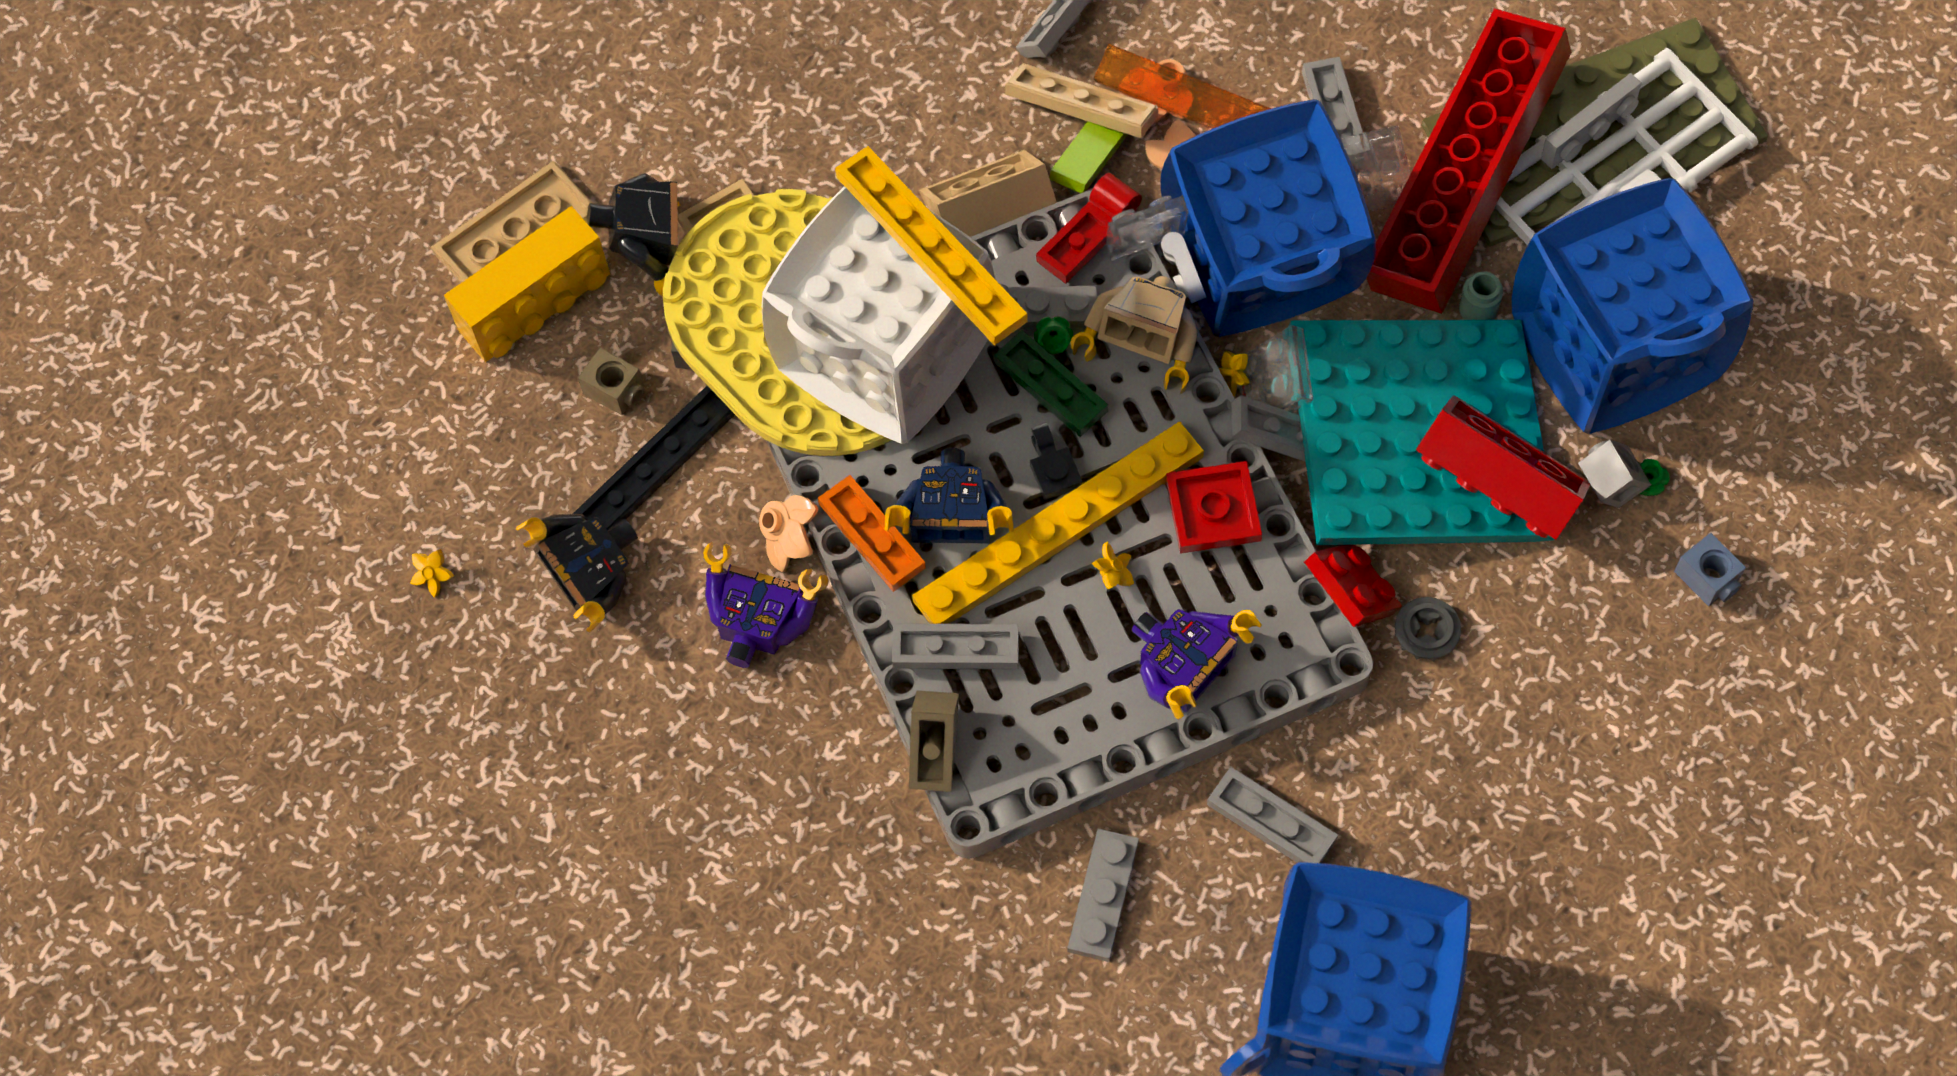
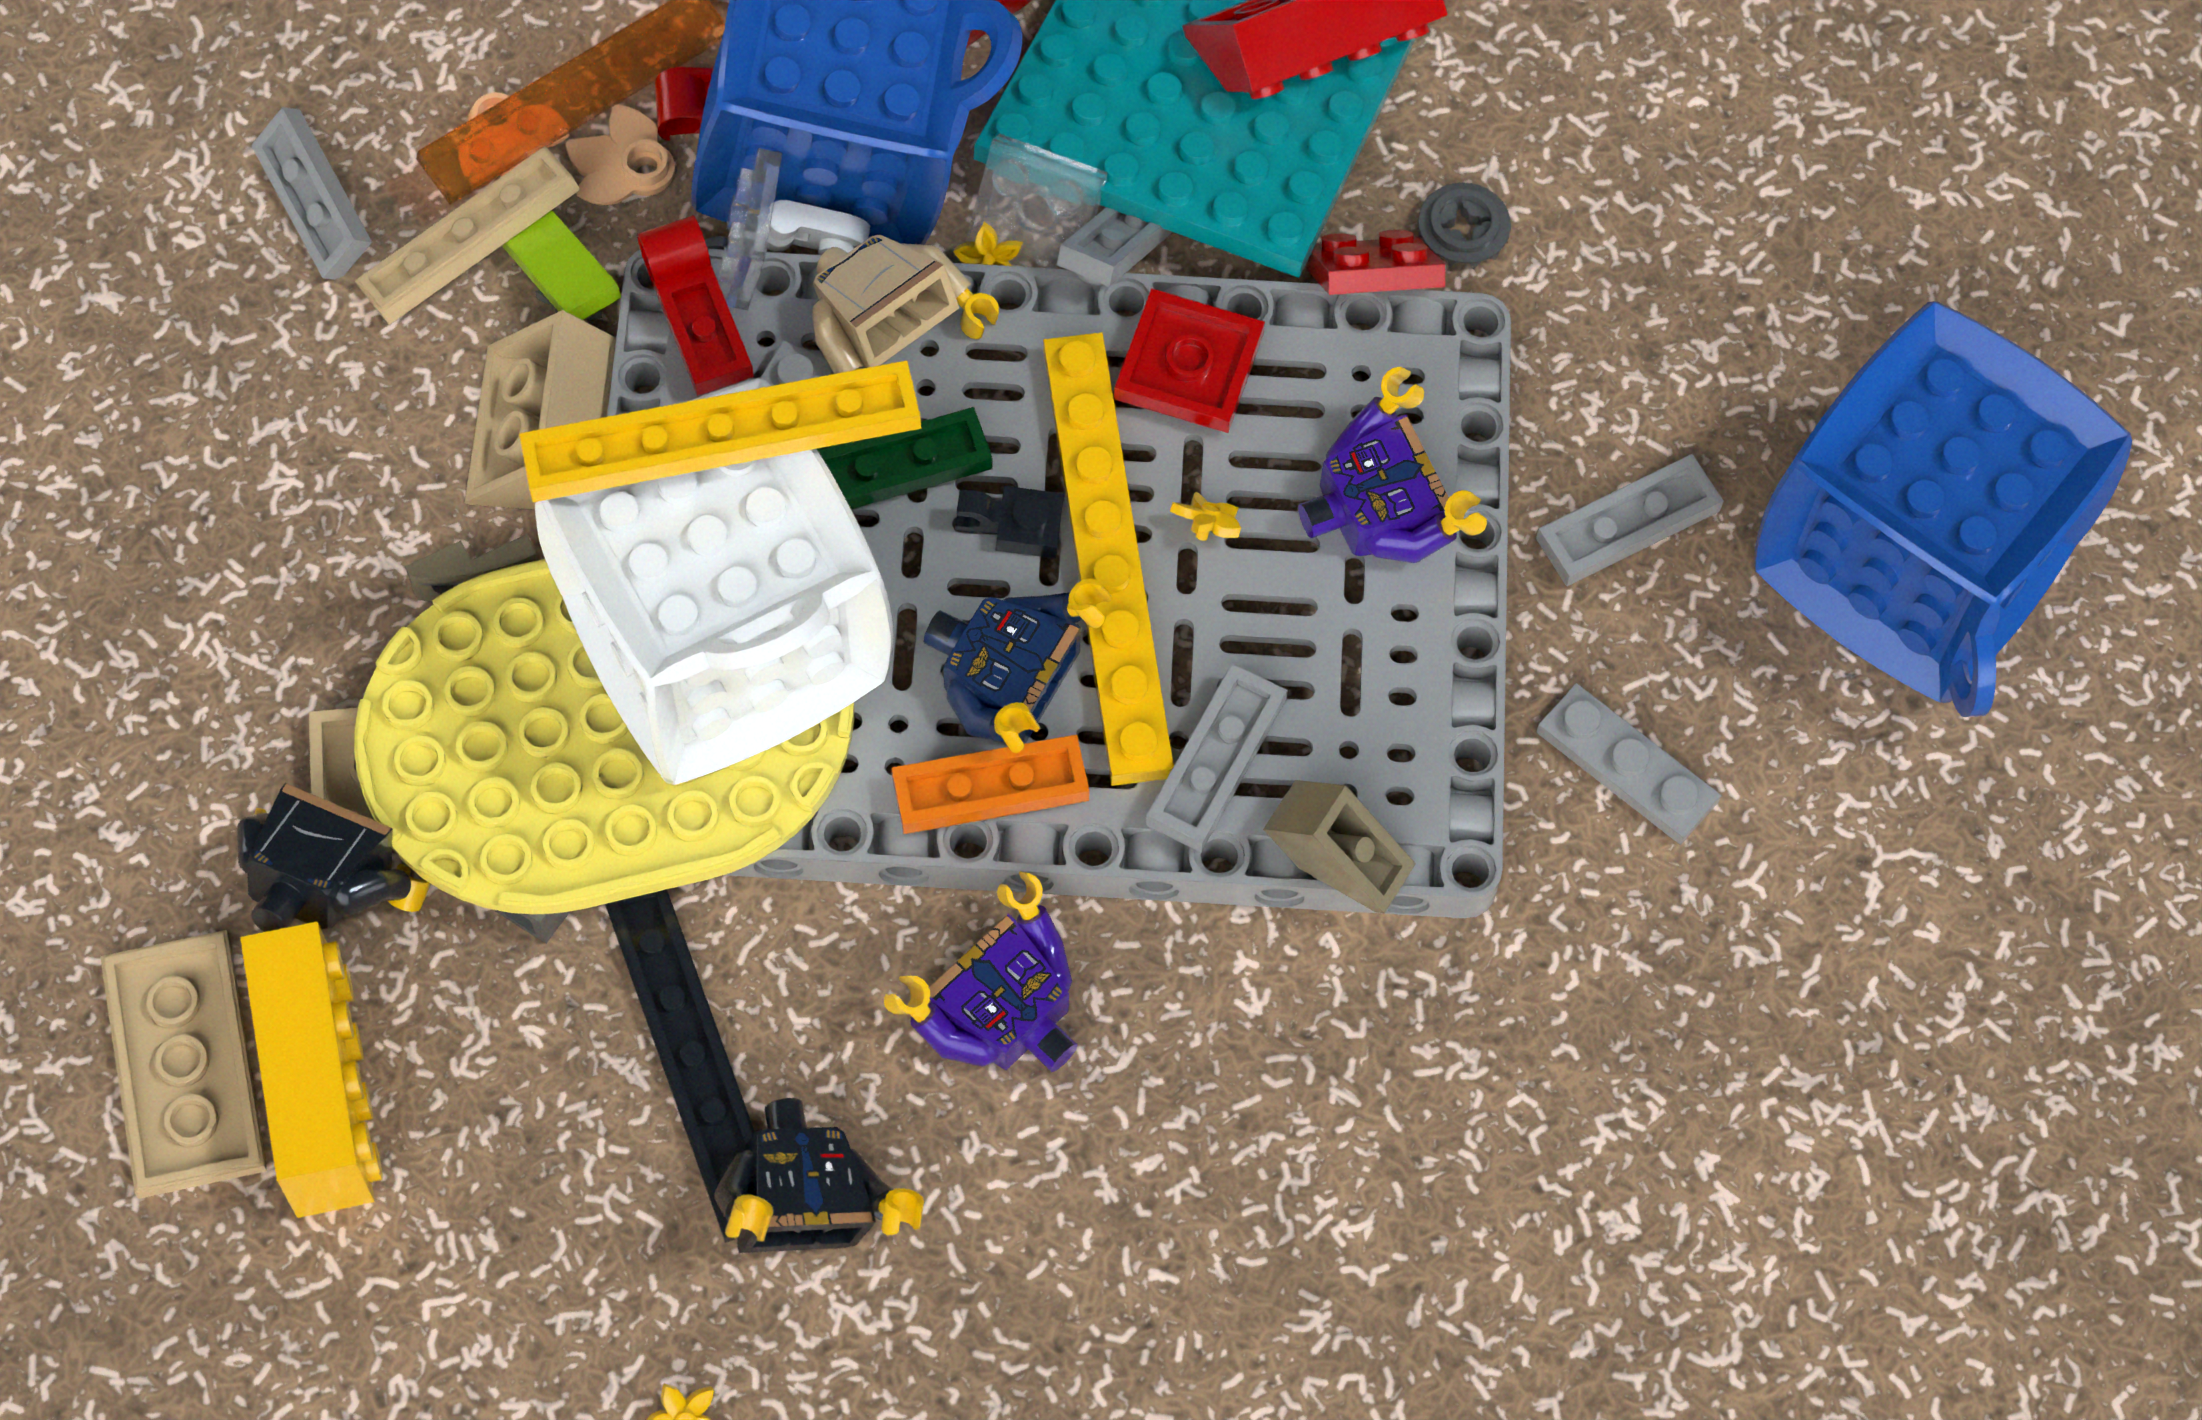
camera: 70 degrees left, 0 degrees up
(605, 369) = (524, 1058): dark tan brick -> none
(784, 529) = (911, 897): light nougat plate -> none

